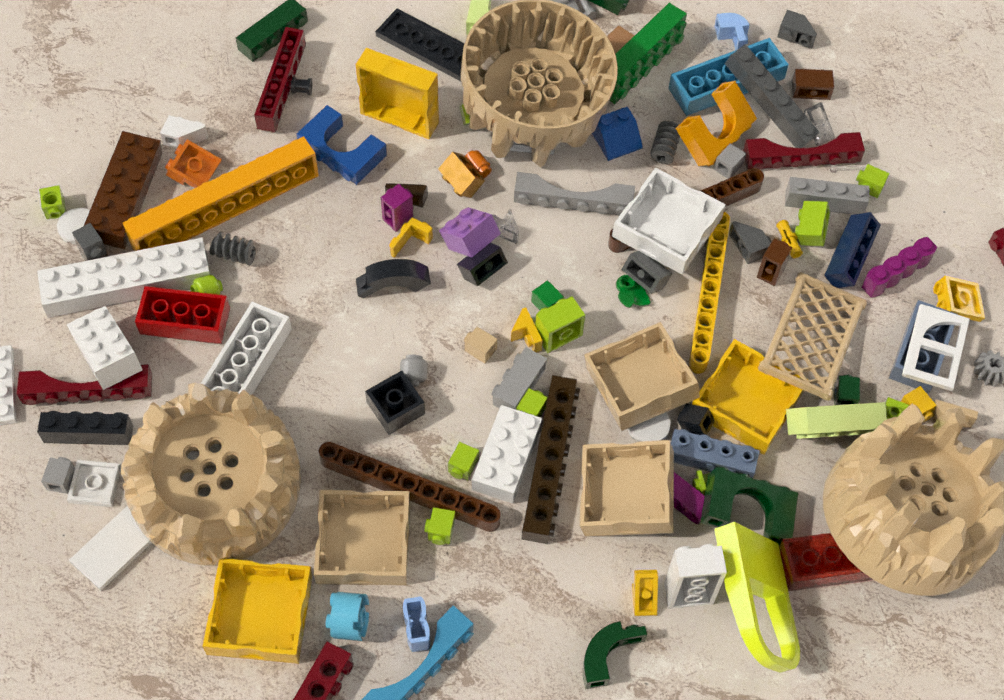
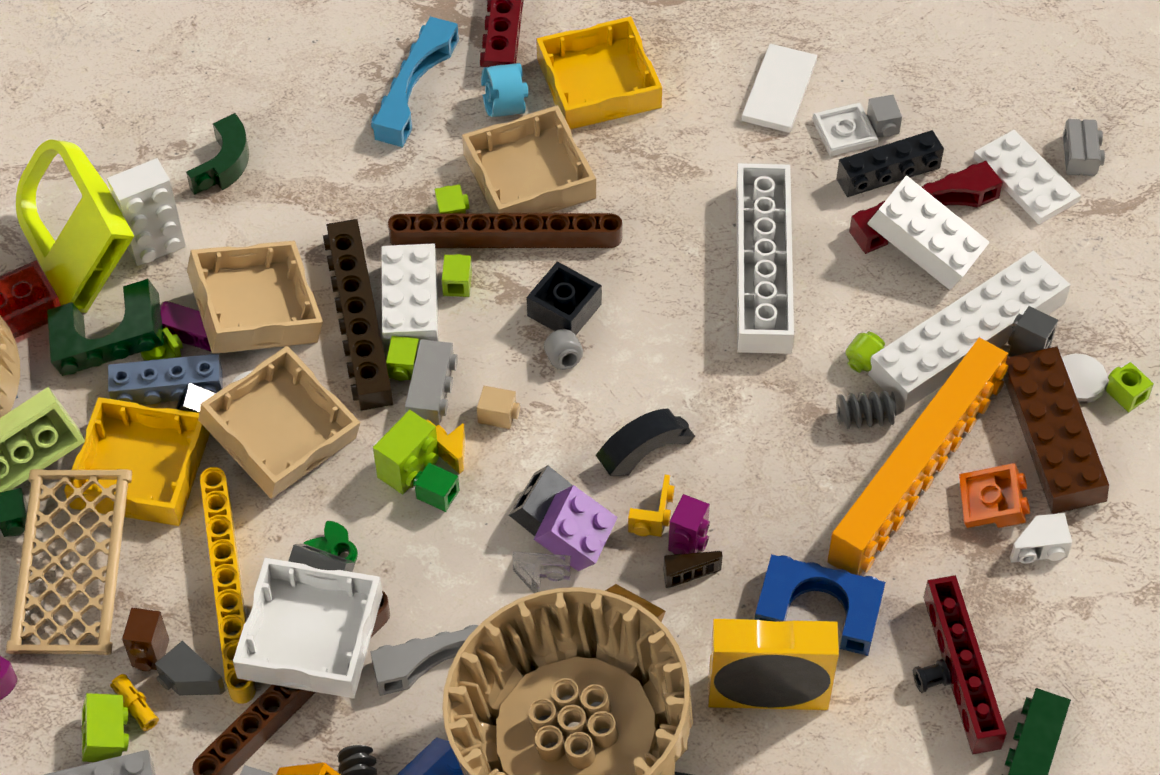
camera: 160 degrees right, 5 degrees down
(182, 315) = (872, 303): red brick -> none
(228, 521) = (712, 131): tan wheel -> none
(416, 624) = (431, 108): light blue brick -> none
(645, 592) = (203, 222): yellow slope -> none
(852, 250) = (38, 707): dark blue brick -> none

